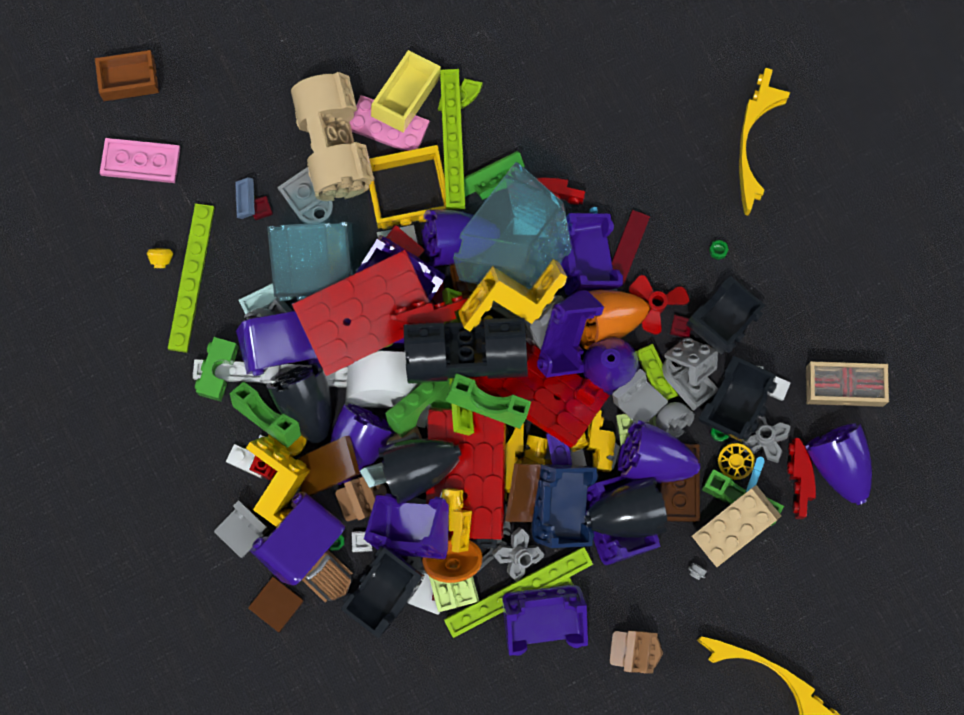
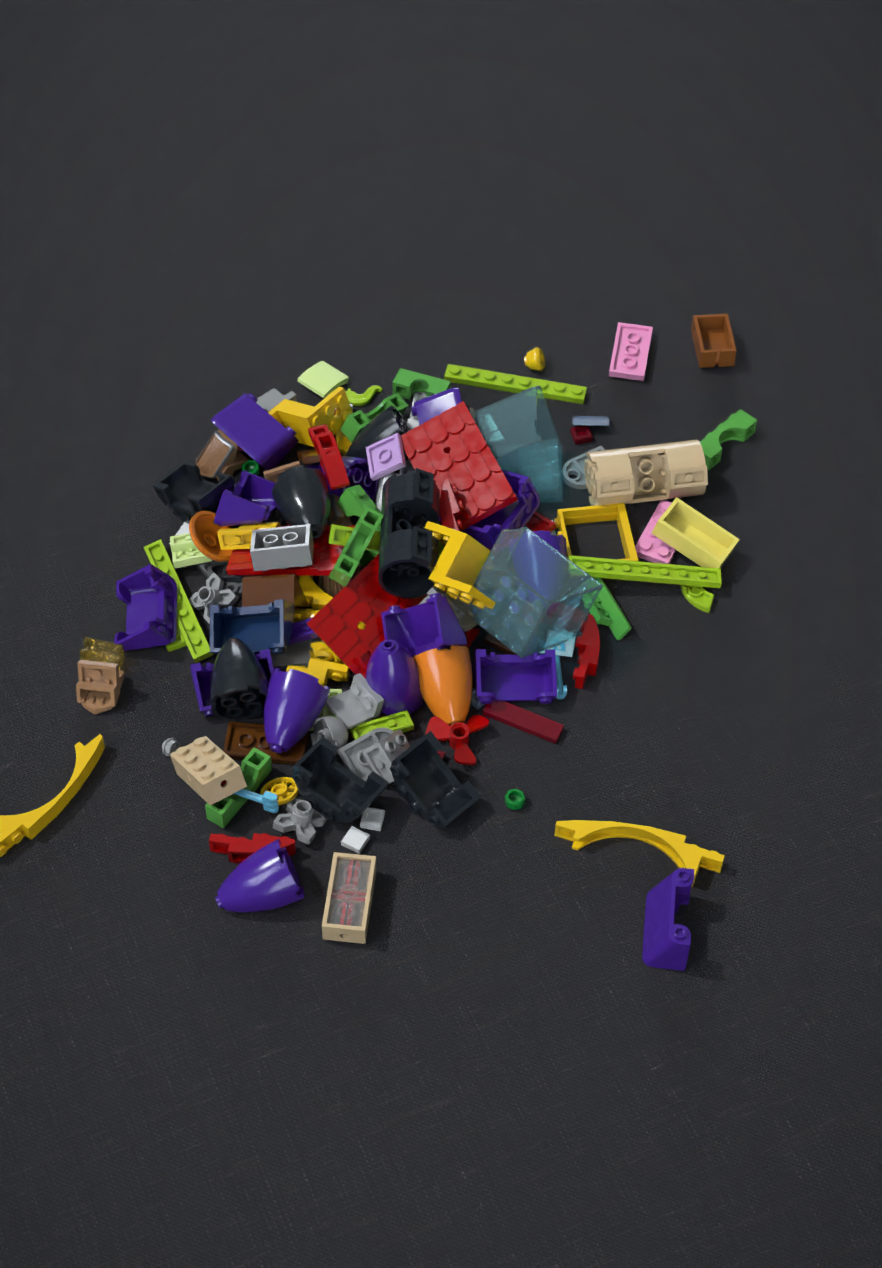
camera: 95 degrees right, 25 degrees down
(197, 480) = (322, 379): none -> yellowish green slope
(222, 441) = (362, 399): none -> lime piece
(245, 53) = (737, 427): none -> bright green arch
(276, 604) = (197, 428): reddish brown tile -> none
(348, 388) = (385, 456): none -> lavender tile
(356, 444) = (330, 456): none -> red slope
(484, 479) = (282, 547): none -> light grey brick
(596, 657) = (102, 651): none -> clear yellow hinge
(834, 118) = (667, 943): none -> dark purple windscreen

